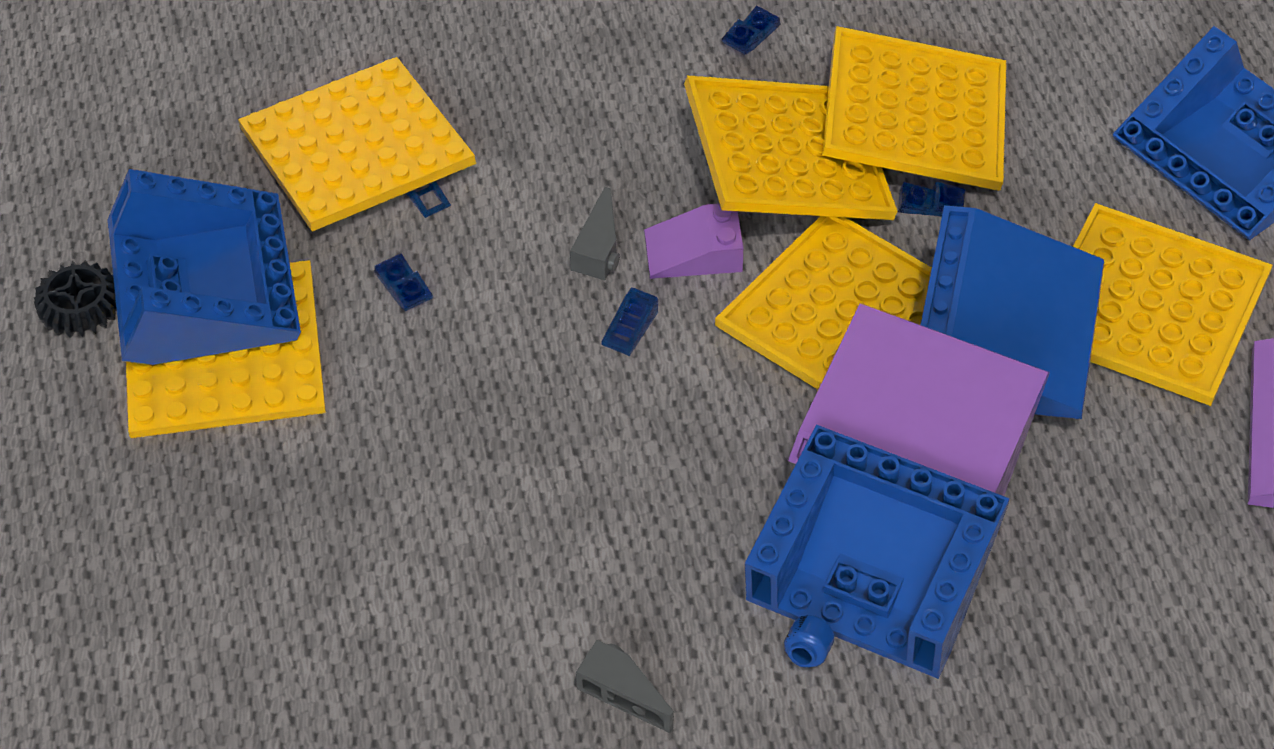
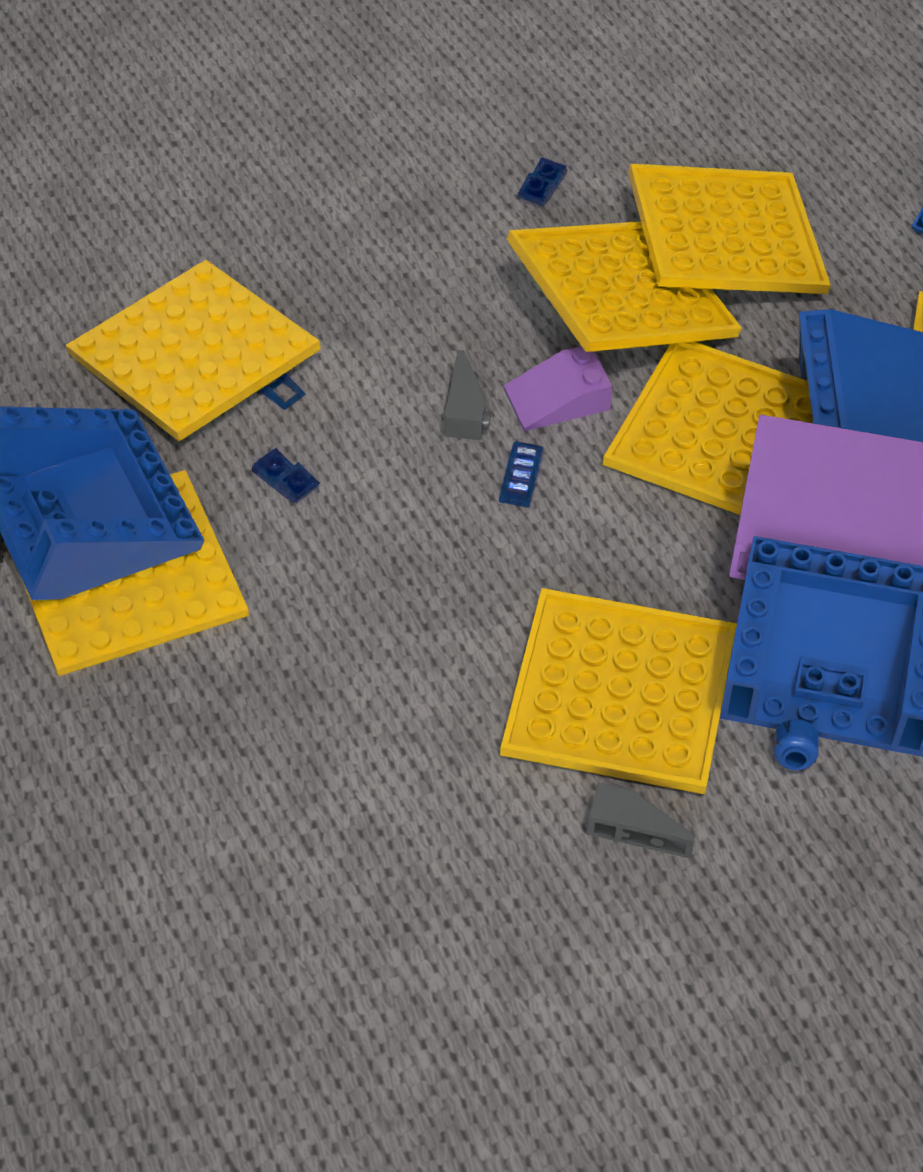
camera: 15 degrees left, 0 degrees up
(650, 554) = (620, 691): none -> yellow plate
(926, 201) = (773, 312): clear blue slope -> none

